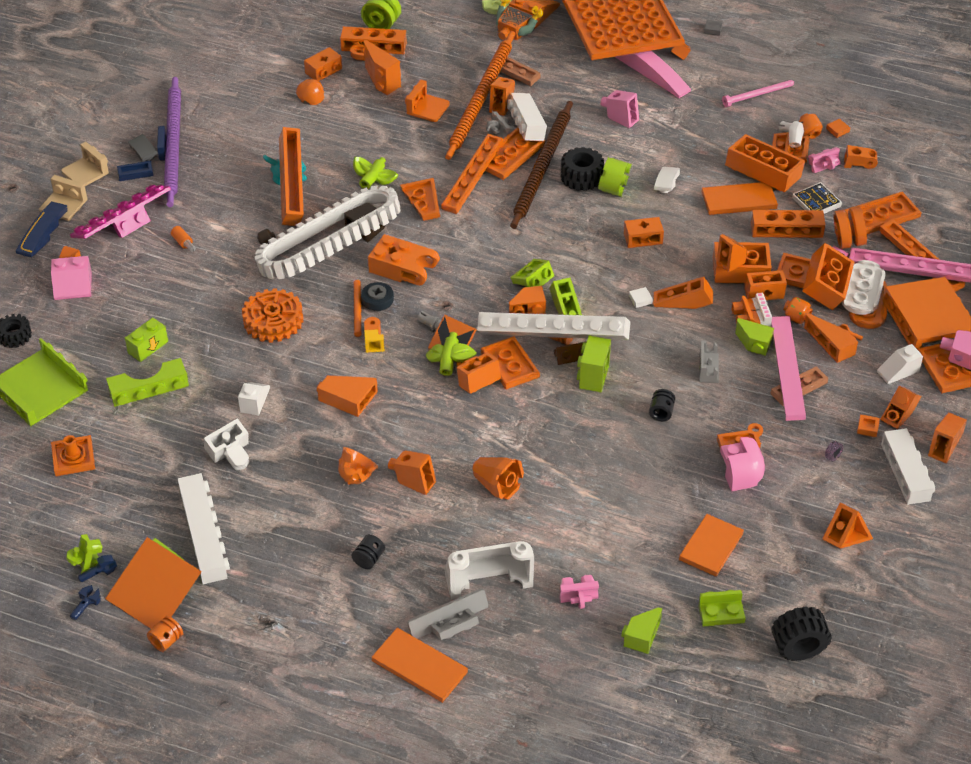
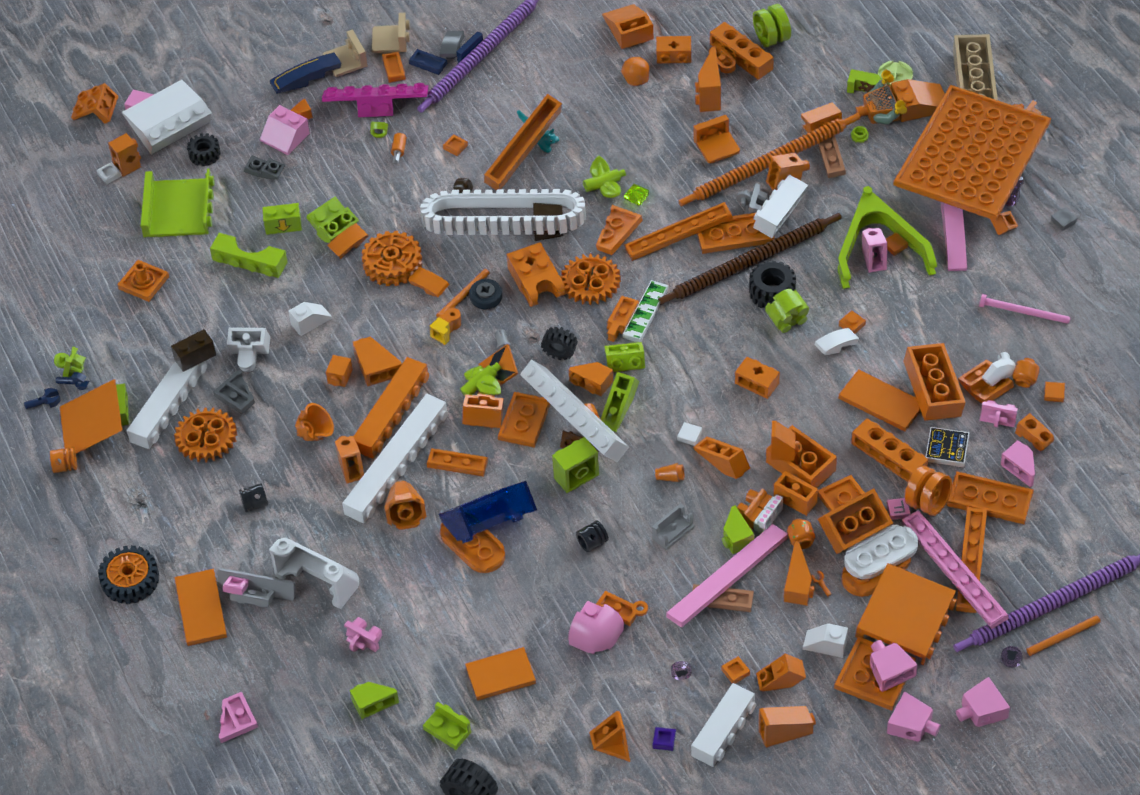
camera: 45 degrees right, 5 degrees up
(88, 314) = (265, 169): none -> dark grey slope
(110, 188) = (393, 67): none -> orange tile
(150, 232) = (378, 125): none -> lime tile
(192, 316) = (331, 219): none -> lime brick
(194, 472) = (193, 350): none -> dark brown brick
(220, 324) = (347, 240): none -> orange slope
(226, 213) = (455, 145): none -> orange tile
(257, 488) = (235, 393): none -> dark grey wing
(258, 541) = (217, 435): none -> orange gear
(271, 65) = (629, 25): none -> orange slope
(326, 313) = (428, 281): none -> orange slope
(326, 417) = (339, 371): none -> orange brick
(335, 668) = (115, 577): none -> wheel
(399, 411) = (390, 407): none -> orange brick
(408, 169) = (636, 194): none -> clear neon green tile
(436, 624) = (235, 585): none -> bright pink tile
(448, 450) = (395, 458): none -> white brick
(455, 234) = (602, 284): none -> orange gear
(473, 296) = (559, 343): none -> black tyre
(482, 16) = (861, 81): none -> lime leg
(483, 52) = (820, 116): none -> orange hinge
(495, 423) = (457, 462): none -> orange tile
(498, 252) = (620, 317): none -> orange hinge
(509, 239) = (645, 311): none -> tile
(519, 48) = (859, 134): none -> lime plate
(553, 724) = (235, 717): none -> bright pink wing
(564, 439) = (488, 511): none -> clear blue windscreen
(576, 470) = (481, 554): none -> orange tile
(591, 85) = (875, 211): none -> lime piece
(659, 161) = (852, 321): none -> orange plate
(661, 329) = (670, 473): none -> orange cone
(877, 180) = (1020, 462): none -> bright pink slope
(877, 505) = (664, 739): none -> dark purple tile

